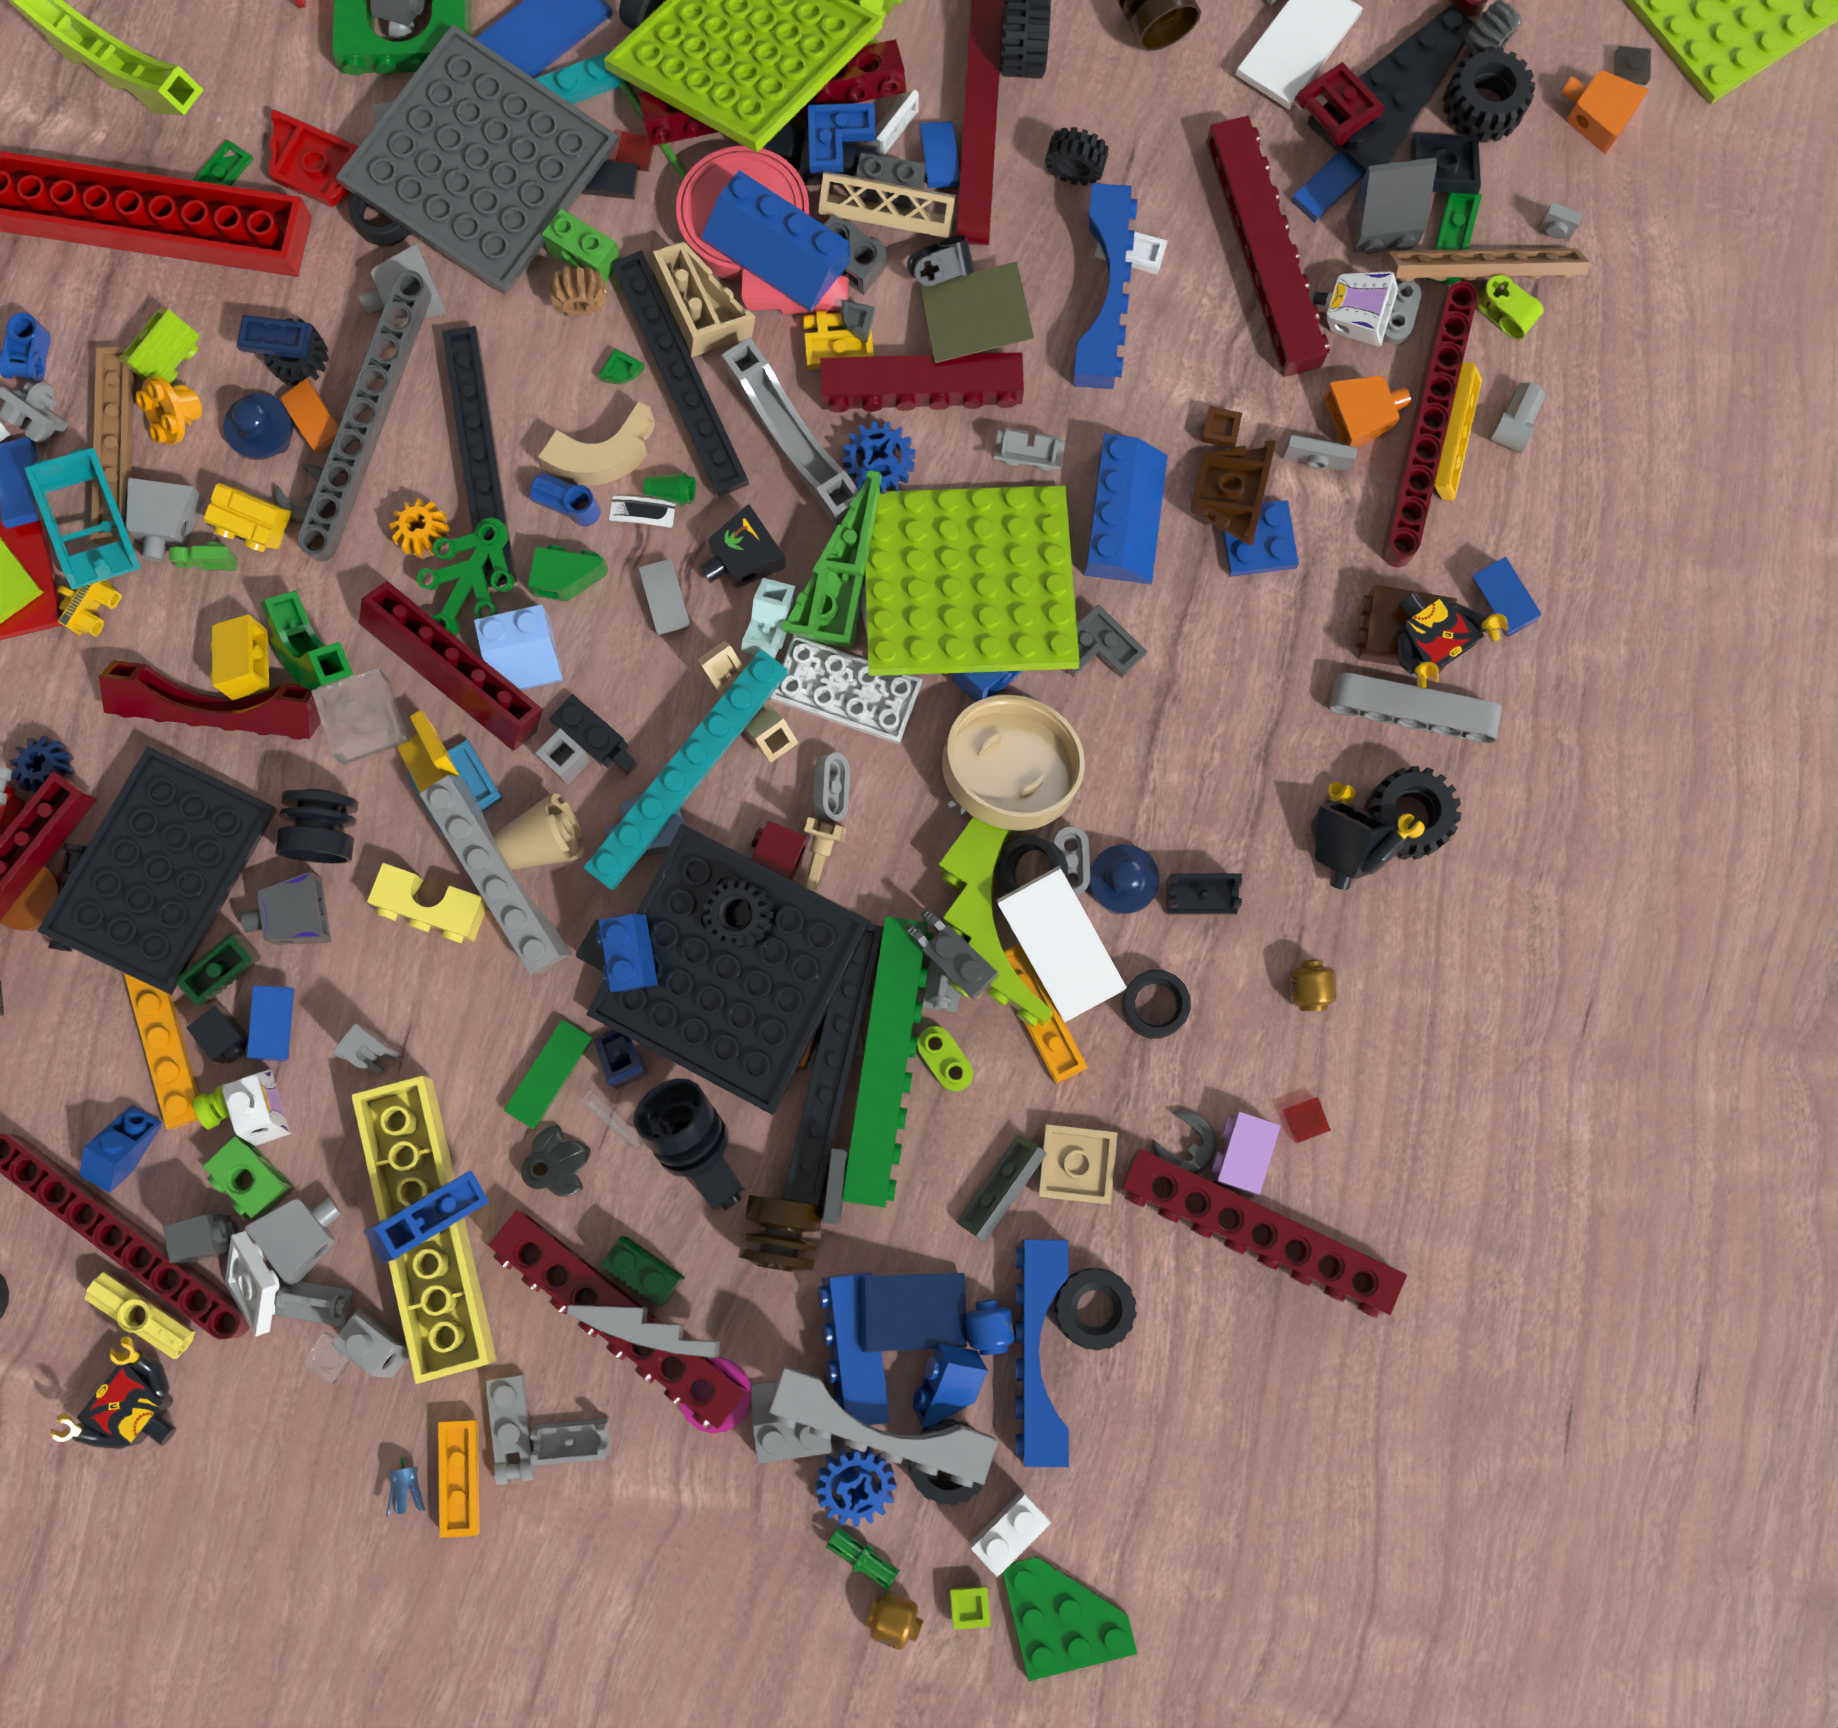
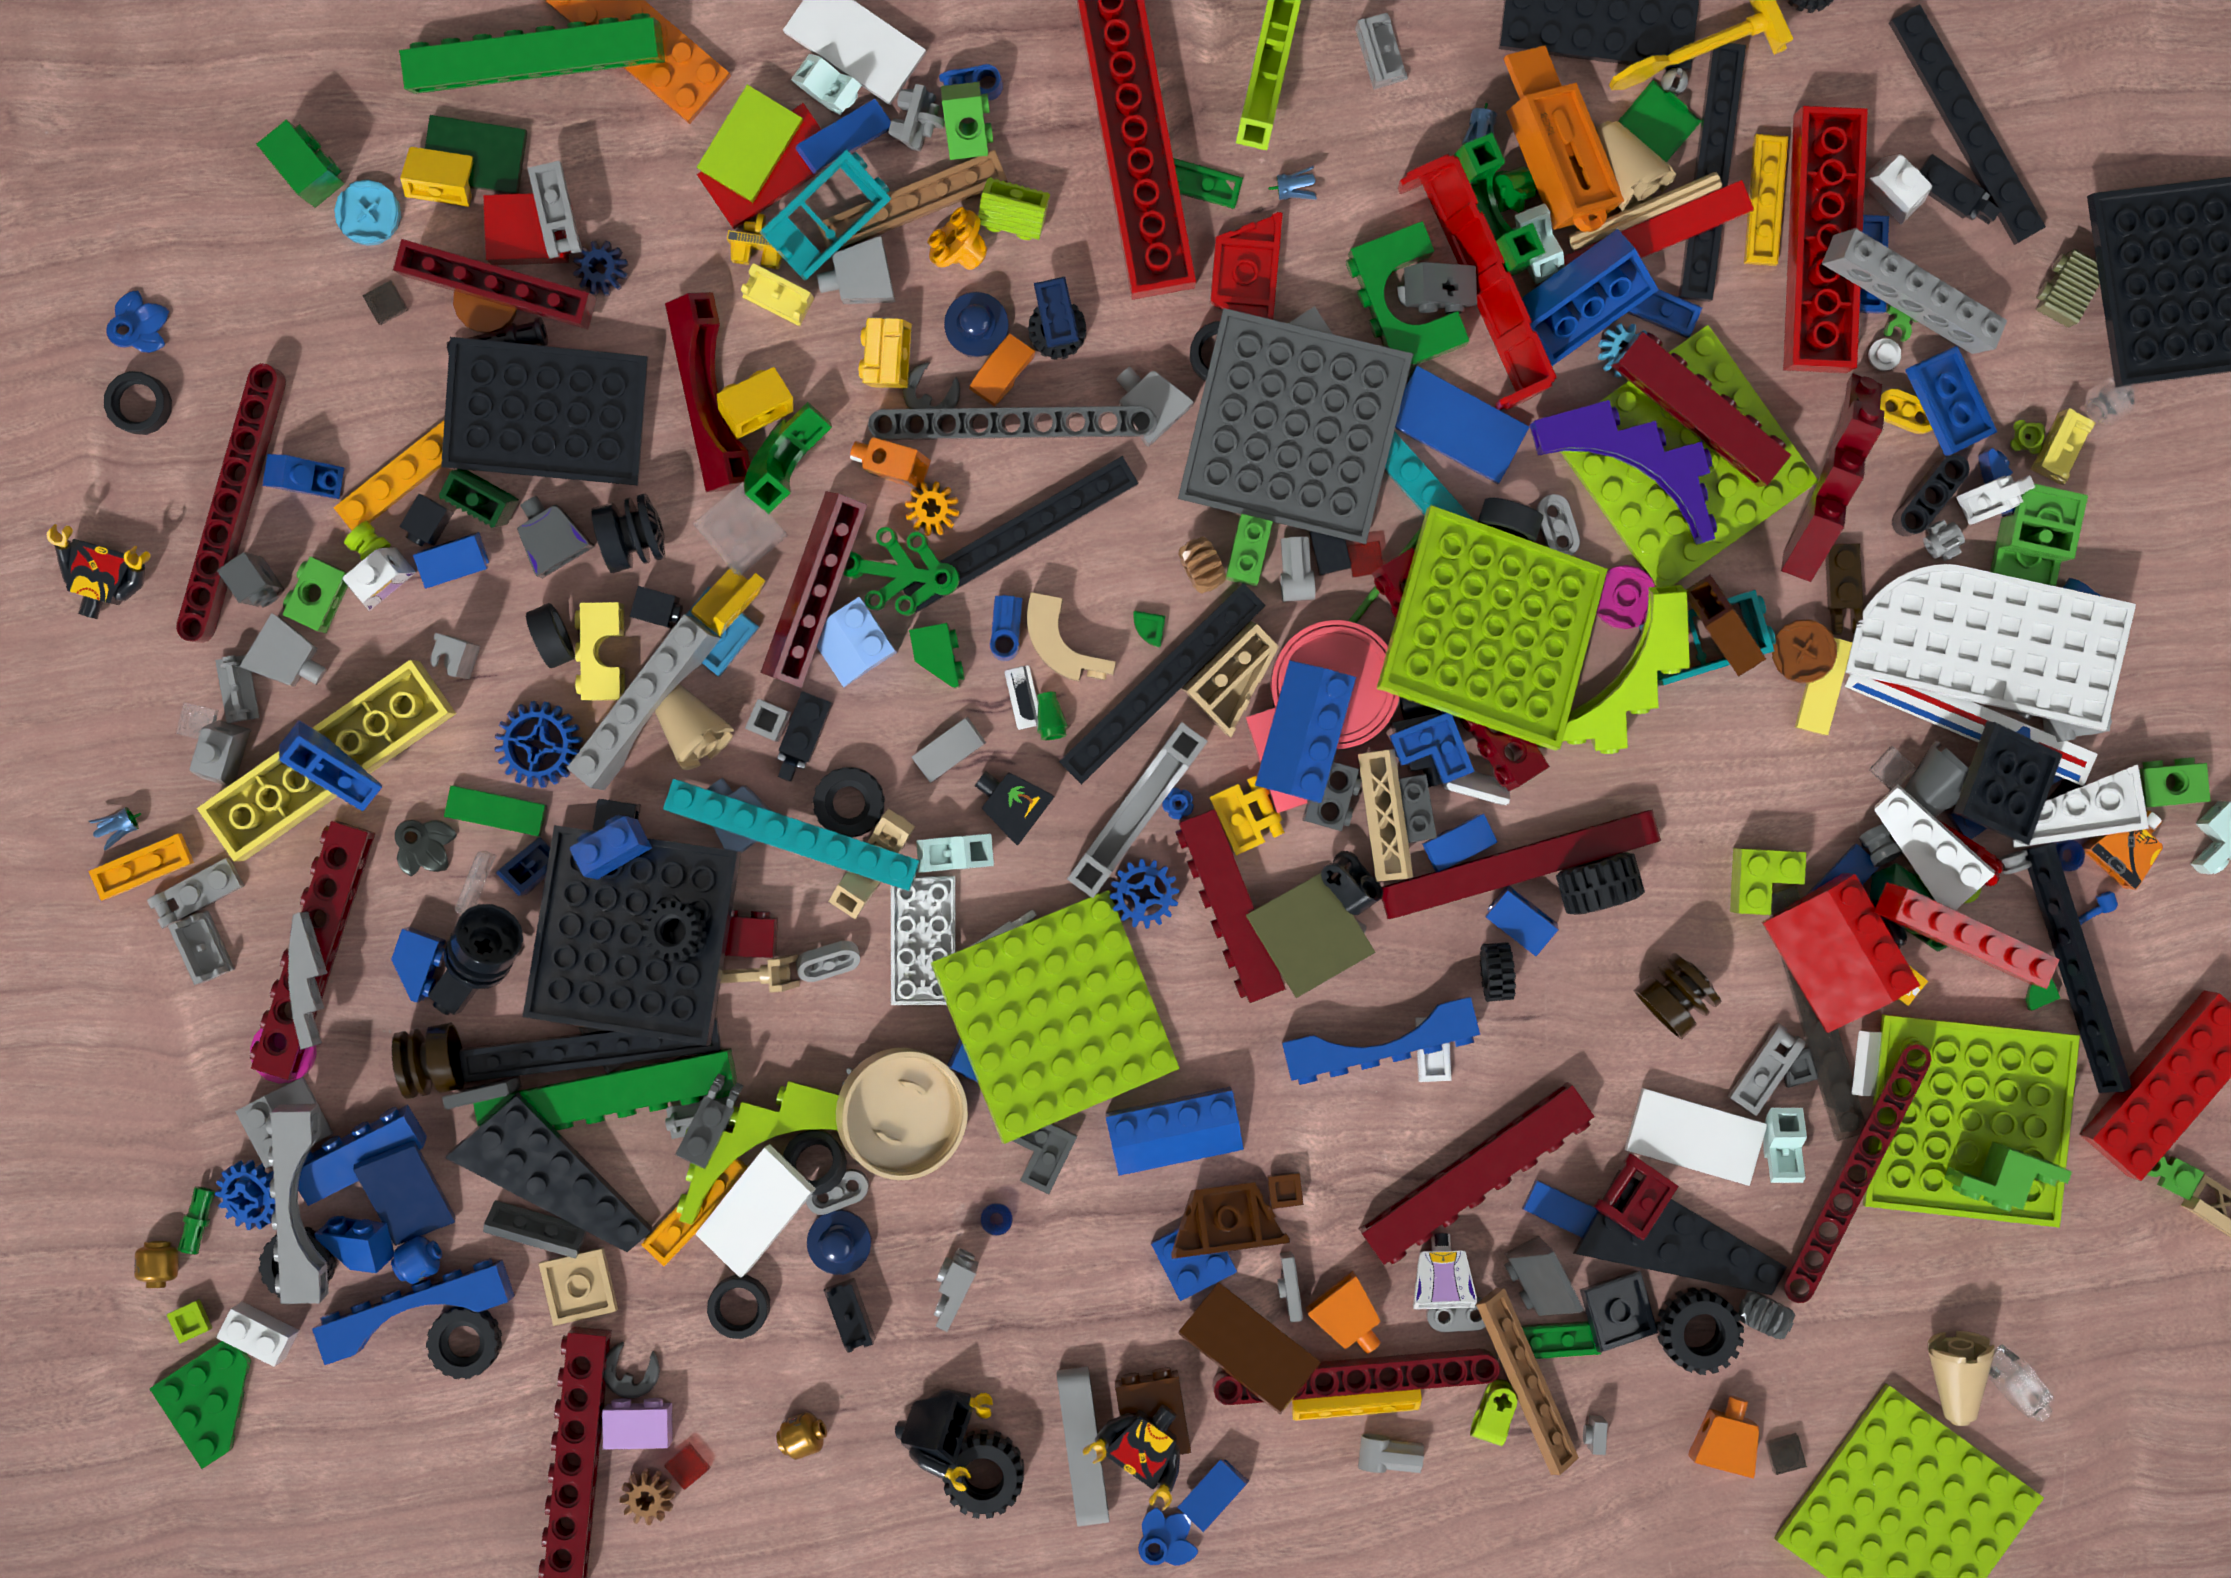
camera: 75 degrees right, 10 degrees up
(32, 359) = (962, 102): none -> bright green brick
(121, 1302) = (179, 530): light yellow piece -> none
(144, 602) = (777, 295): none -> light yellow hinge
(208, 557) = (840, 335): bright green plate -> none
(248, 98) = (1288, 183): none -> flat silver piece
(251, 1283) = (228, 638): white plate -> none
(355, 546) = (901, 464): none -> orange torso
(388, 945) = (550, 635): none -> black tyre
(406, 831) = (656, 607): none -> black brick
(487, 1015) = (511, 739): none -> blue gear
(627, 214) = (1297, 577): none -> light grey piece
(642, 1271) = (358, 955): dark green brick -> none
(665, 688) = (843, 778): none -> black tyre
(670, 1211) = (416, 961): none -> blue slope
(810, 404) = (1186, 803): none -> blue plate
(833, 596) = (997, 902): bright green wedge -> none
(857, 319) = (1267, 828): dark grey tile -> none
(931, 1157) = (536, 1163): none -> black wing
(944, 1059) = (629, 1143): lime plate -> none
(1034, 122) = (1522, 920): none -> blue hinge
(1043, 454) = (1196, 1014): light grey hinge -> none
(1161, 707) = (989, 1226): none -> clear blue plate
(1204, 764) = (955, 1280): none -> light grey plate
(1316, 1178) = (638, 1505): none -> medium nougat gear
(1369, 505) = (1249, 1348): none -> reddish brown tile
(1534, 657) = (1170, 1535): none -> blue plate

